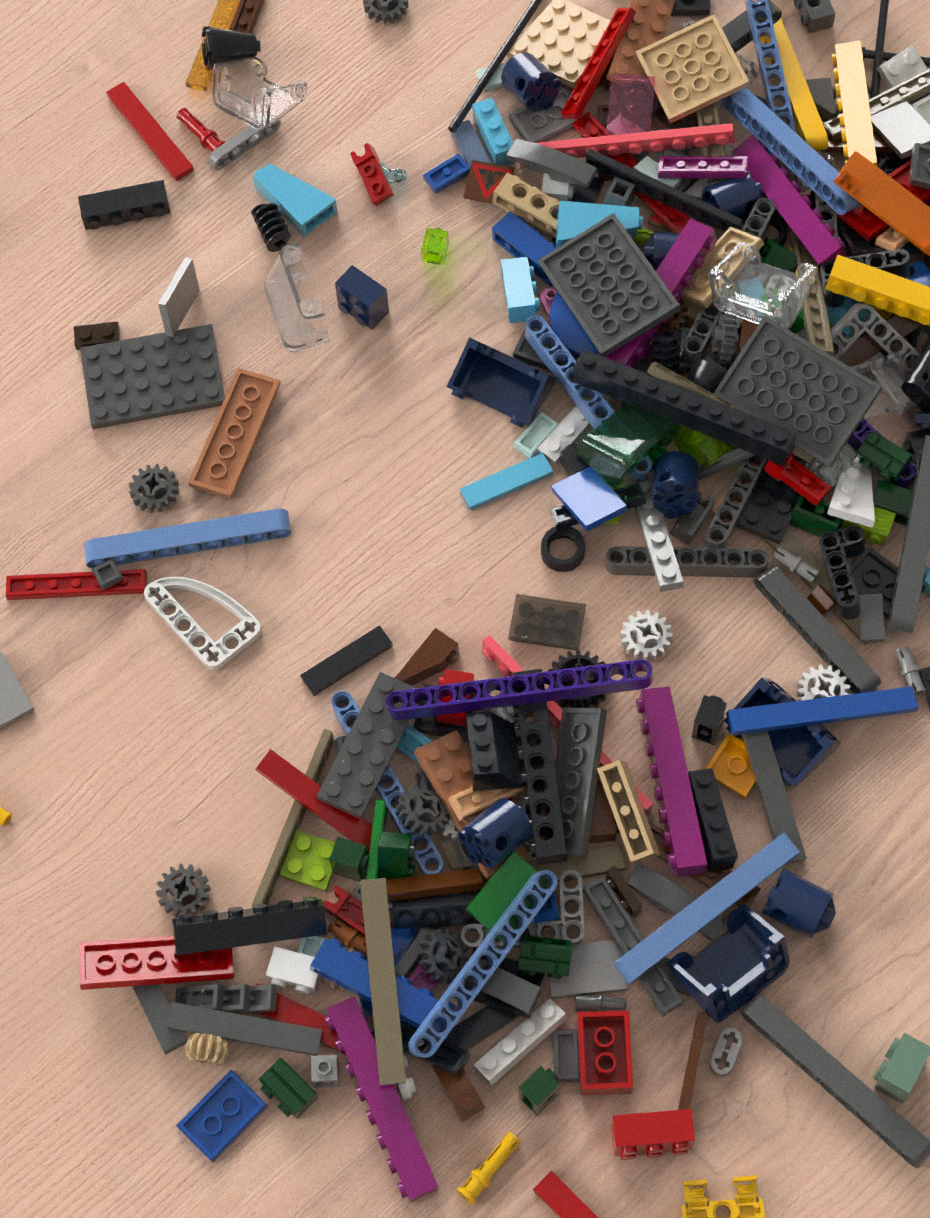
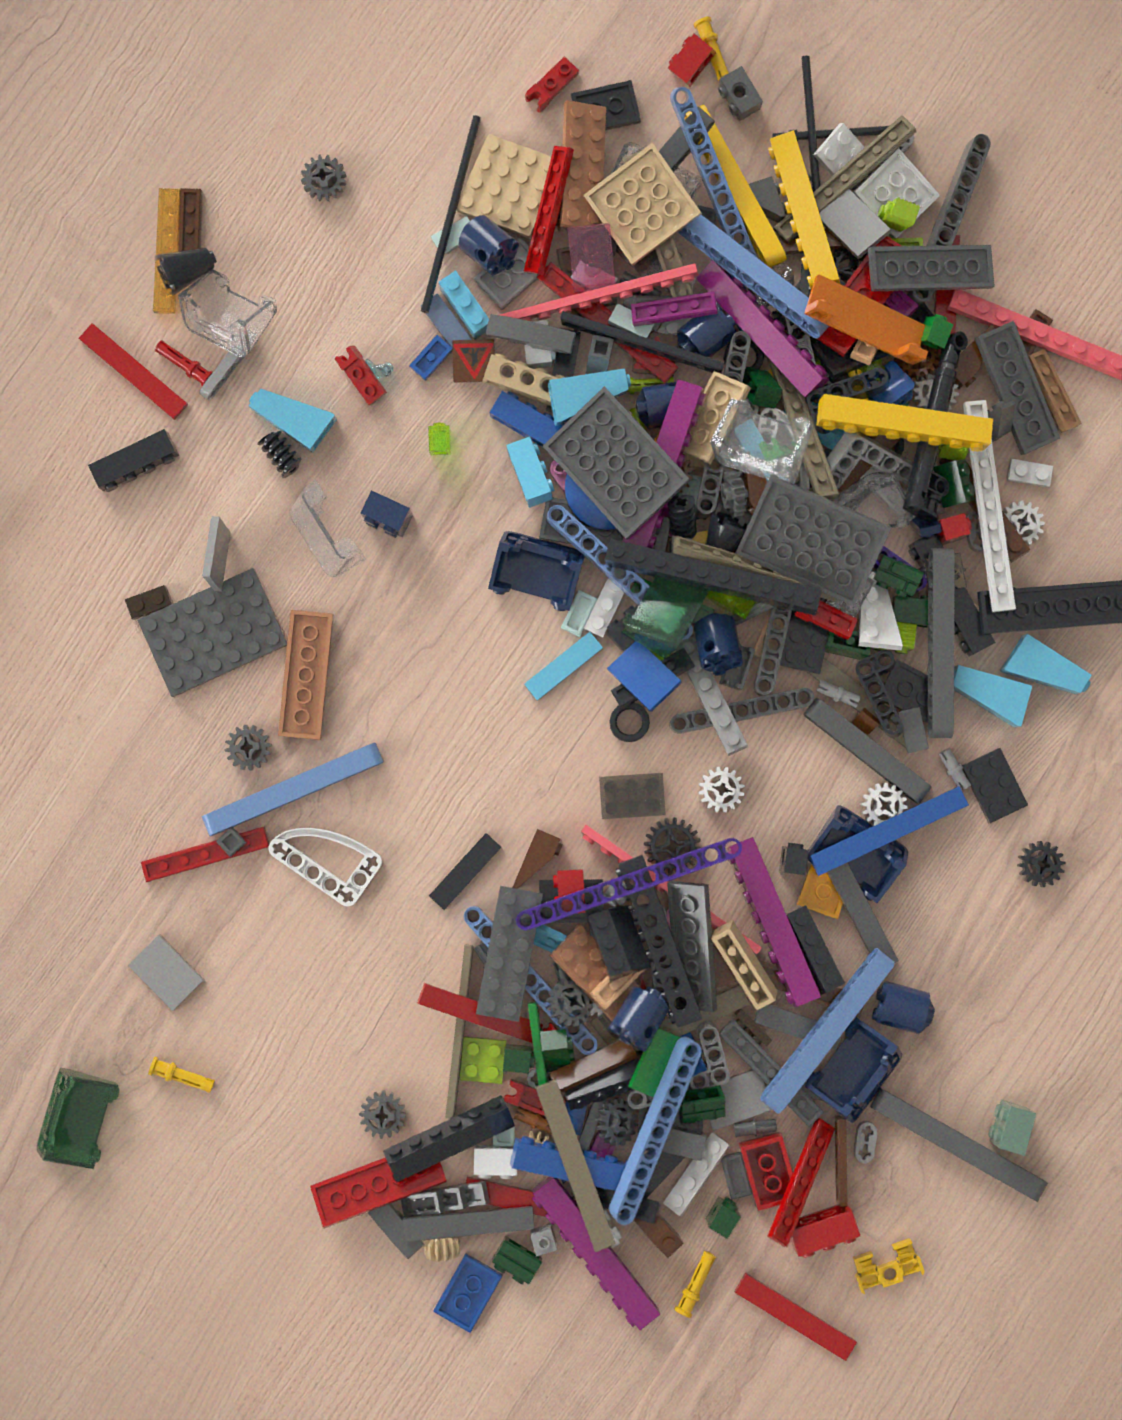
camera: 20 degrees left, 20 degrees up
(638, 1068) = (801, 1182): none -> red tile

